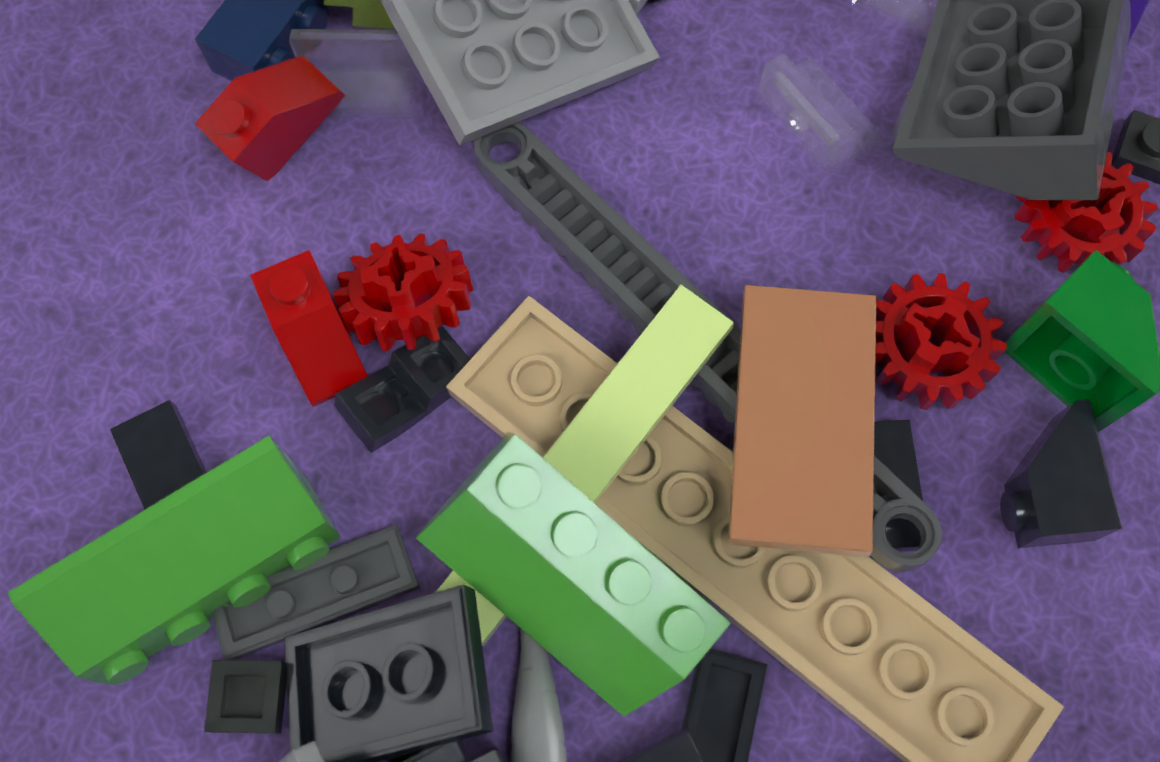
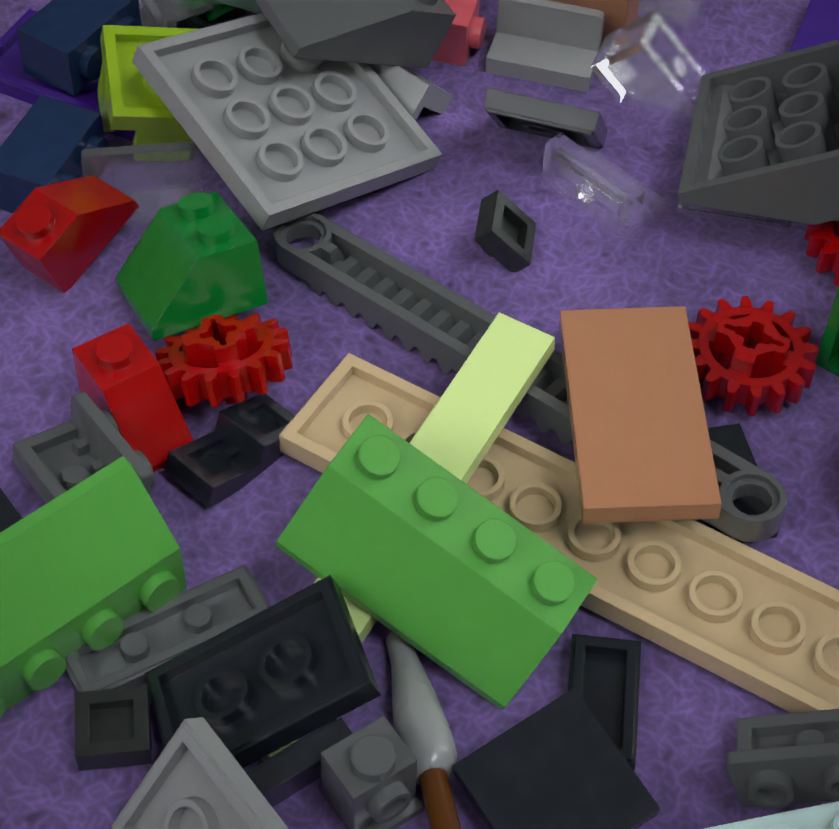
camera: 10 degrees left, 20 degrees down
(251, 400) = (76, 450): none -> dark grey bracket
(385, 180) = (192, 266): none -> green slope
(708, 161) = (505, 232): none -> pearl dark grey plate
(769, 31) = (545, 118): none -> black tile

